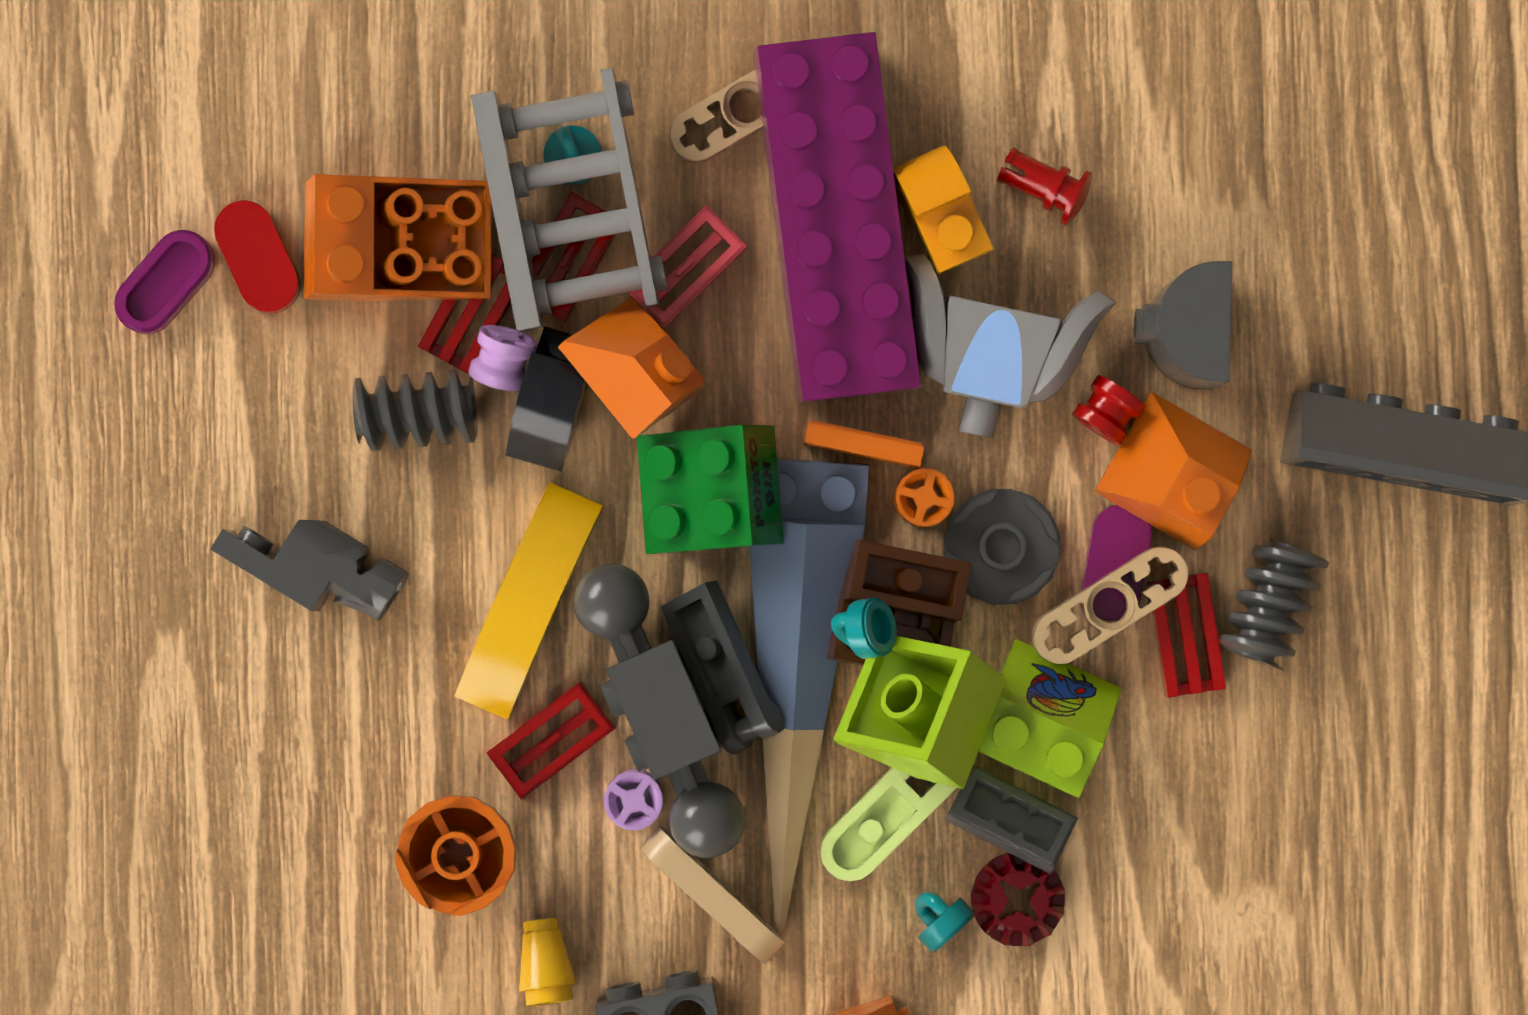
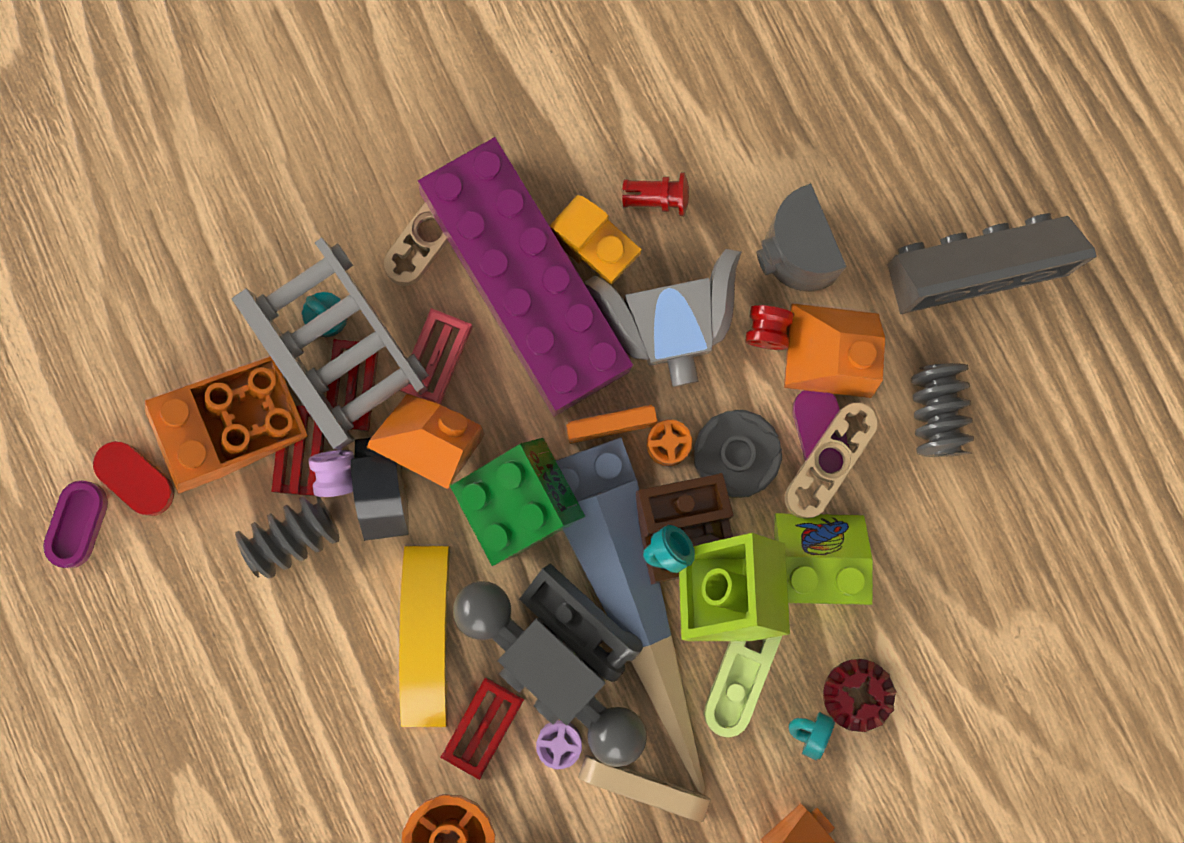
camera: 20 degrees left, 5 degrees down
(315, 563) = (261, 676): dark grey plate -> none
(1011, 819) = (831, 641): dark grey plate -> none
(1210, 638) = (908, 453): red tile -> none

